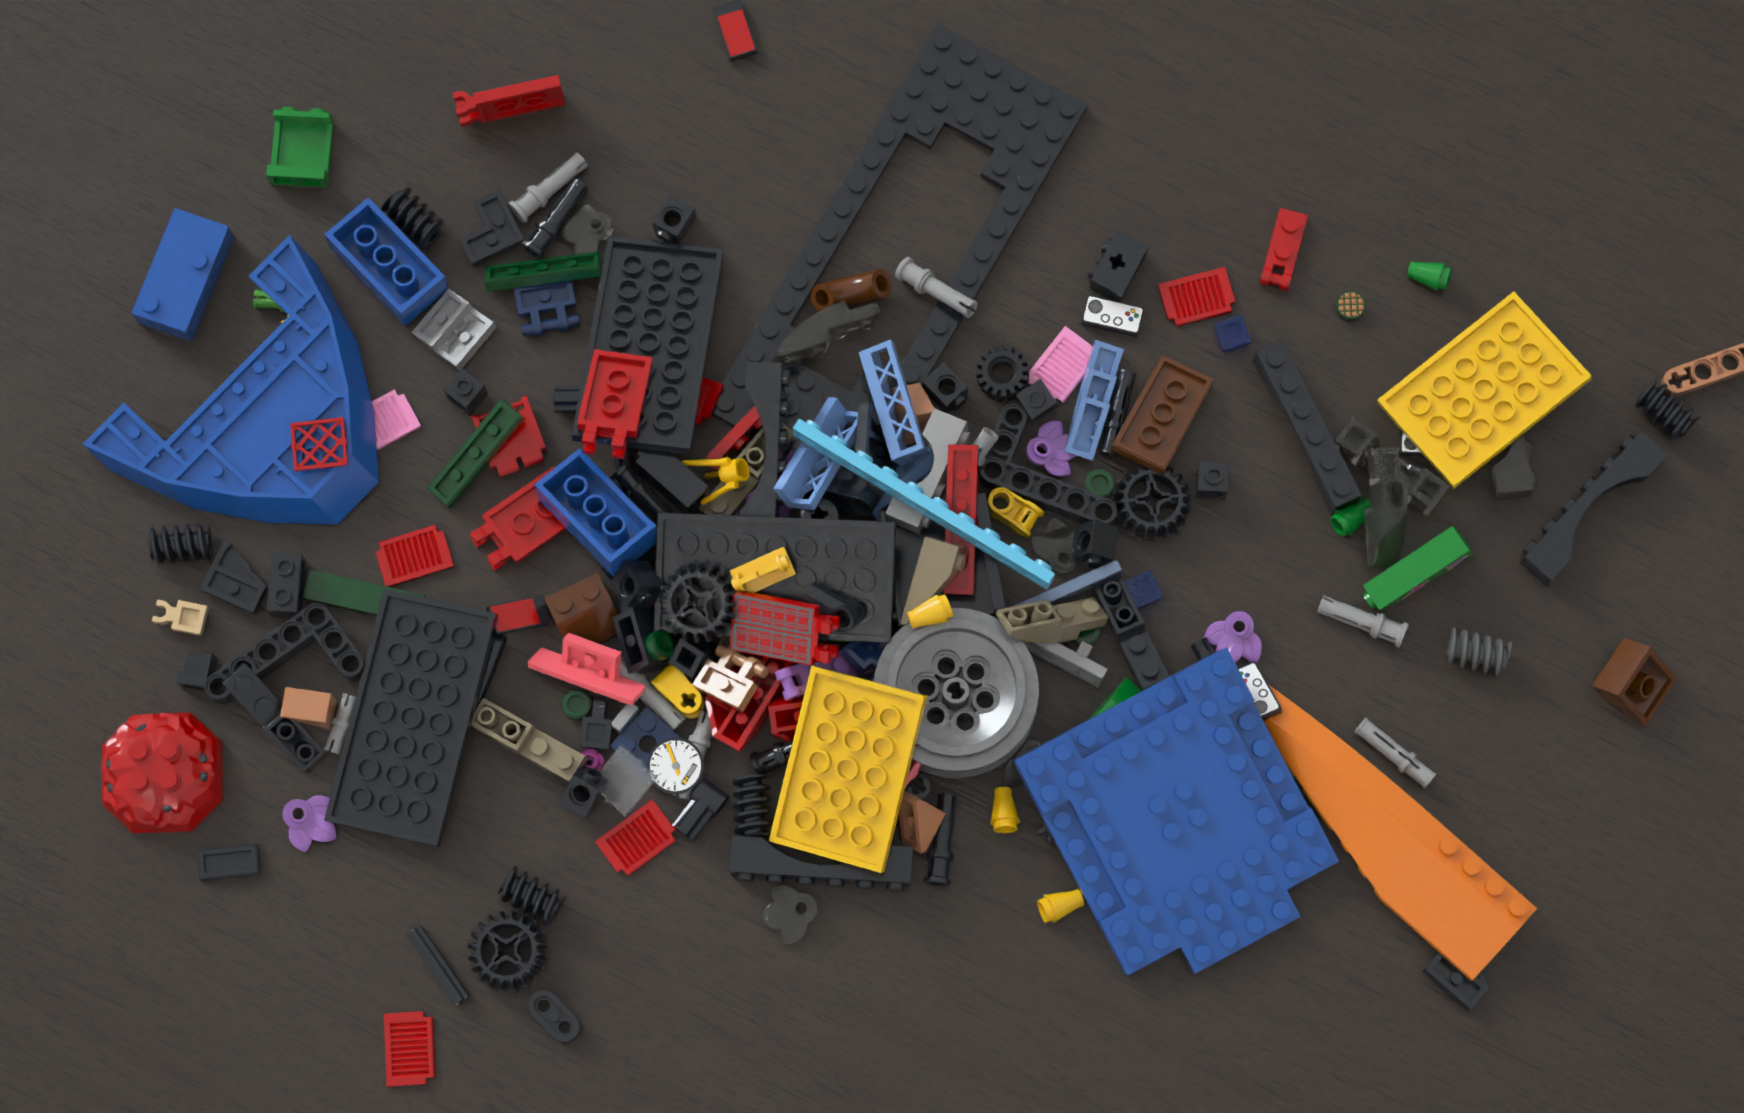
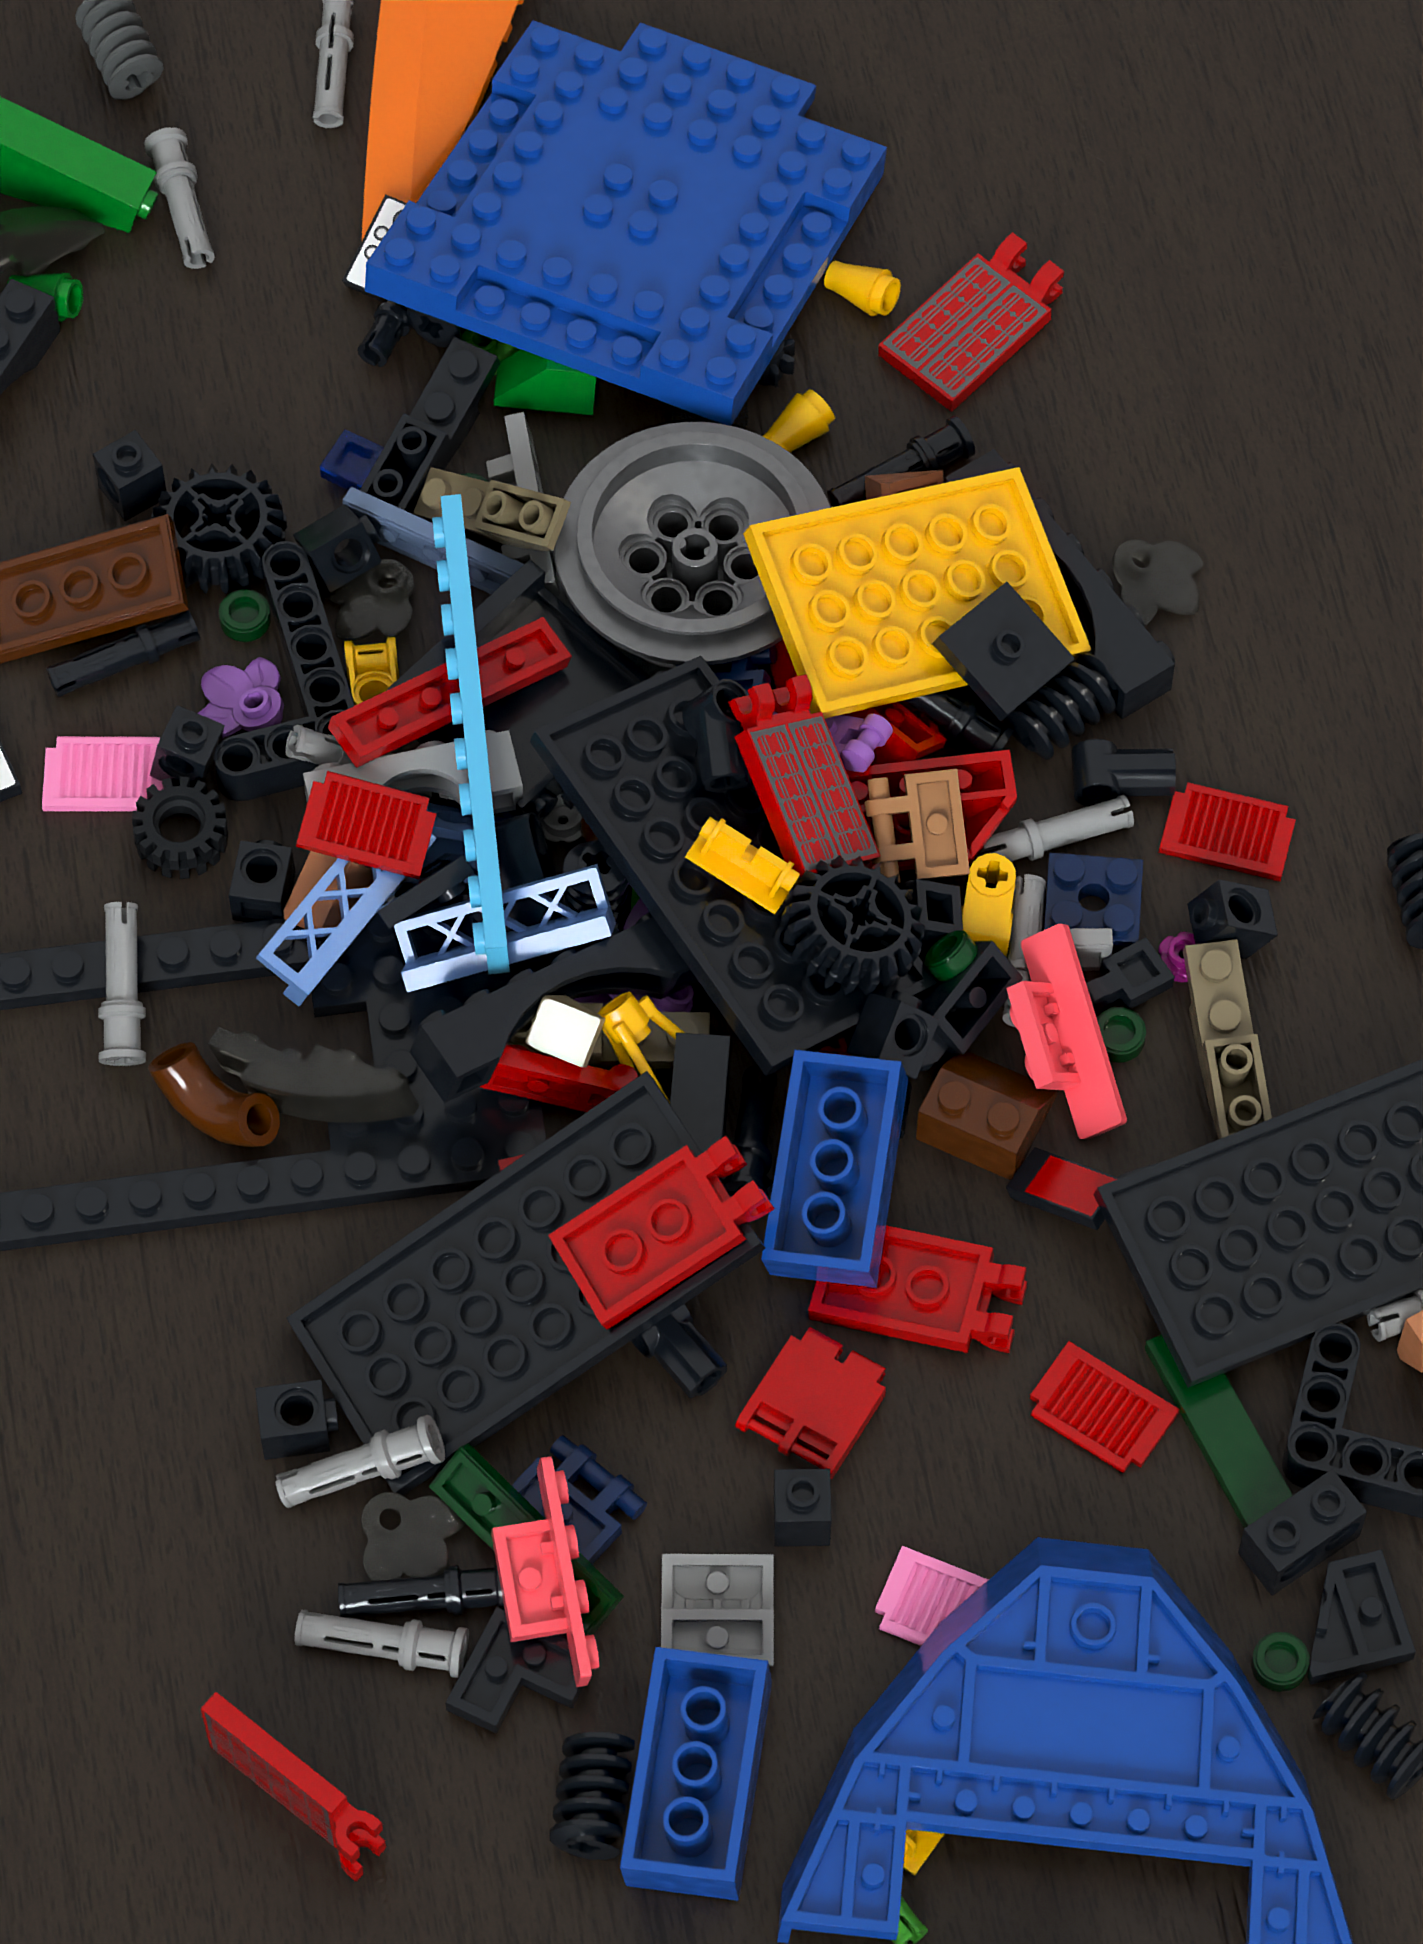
camera: 130 degrees left, 15 degrees down
(246, 537) = (1280, 1661): none -> dark green tile
(319, 444) = (1091, 1594): red window -> none
(476, 453) = (882, 1419): dark green tile -> none
(515, 254) = (539, 1576): none -> coral bracket
(622, 237) = (383, 1456): none -> light grey pin
(627, 780) = (1163, 883): clear piece -> none
(676, 765) = (1093, 835): white sticker -> none
(747, 441) = (565, 1029): none -> slope
(789, 786) = (1003, 651): none -> black plate
(915, 428) = (367, 824): none -> red window
(931, 612) = (617, 621): yellow cone -> none
(934, 571) = (561, 667): dark tan slope -> none
(998, 941) = (973, 324): none -> red tile
(1093, 400) = (141, 688): medium blue slope -> none
(1238, 643) = (330, 323): medium lavender plate -> none

